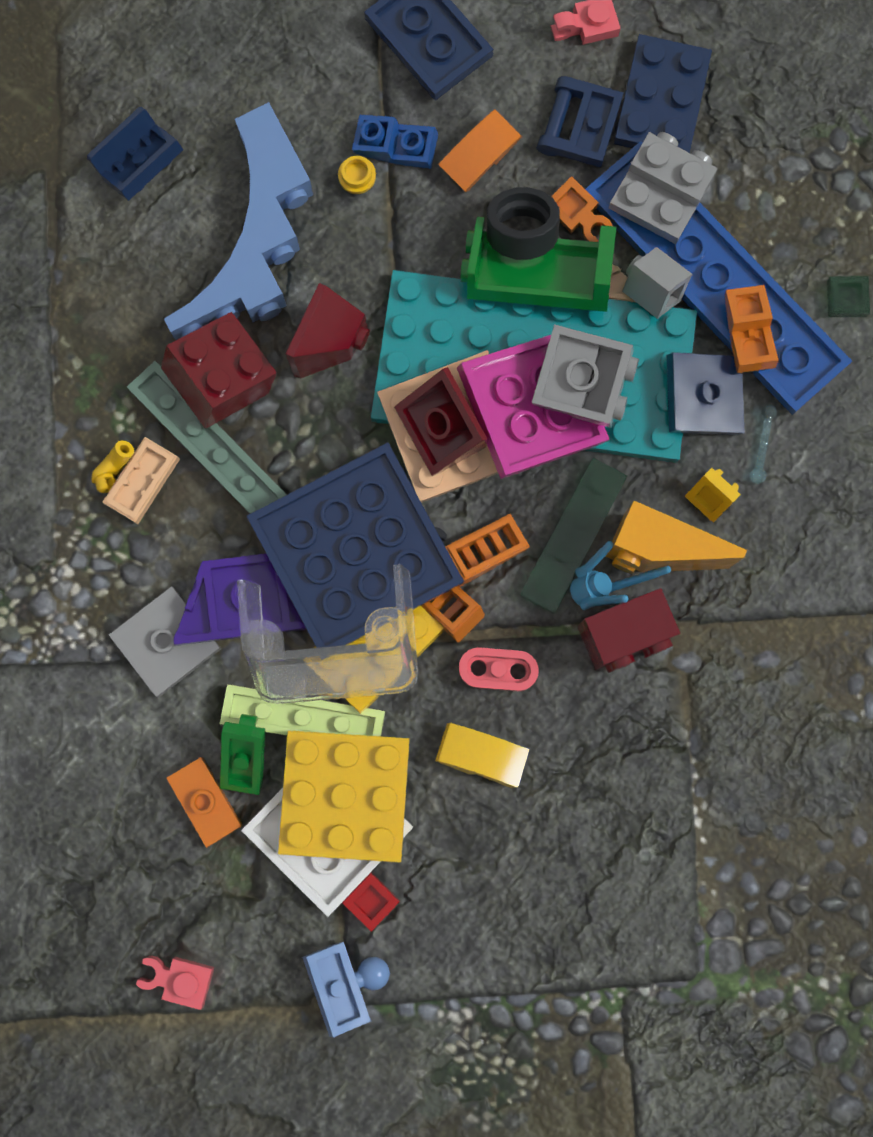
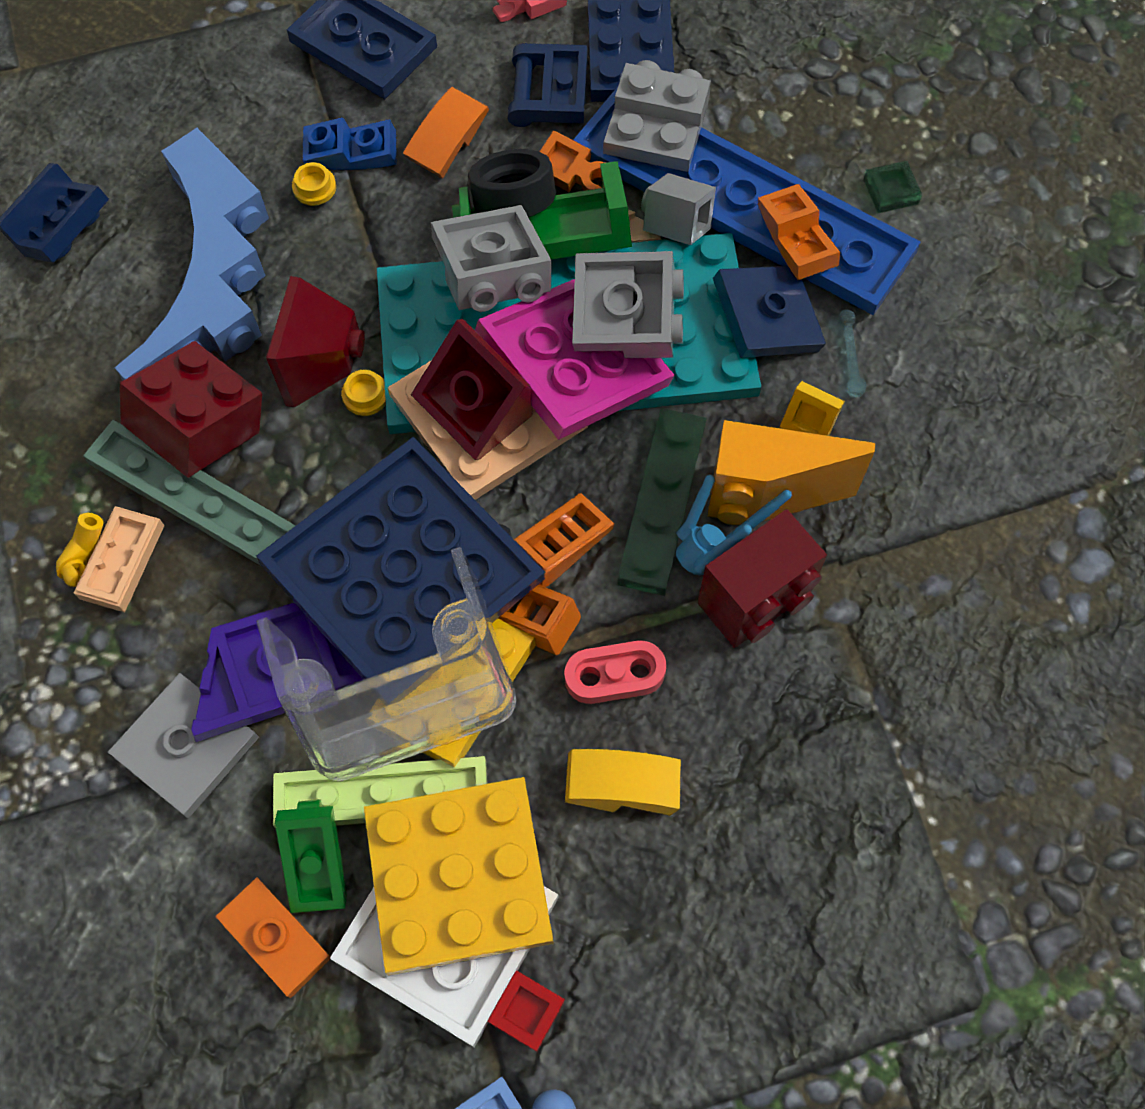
camera: 15 degrees left, 15 degrees down
(358, 383) = (364, 393): none -> yellow plate
(486, 306) = (492, 258): none -> light grey plate

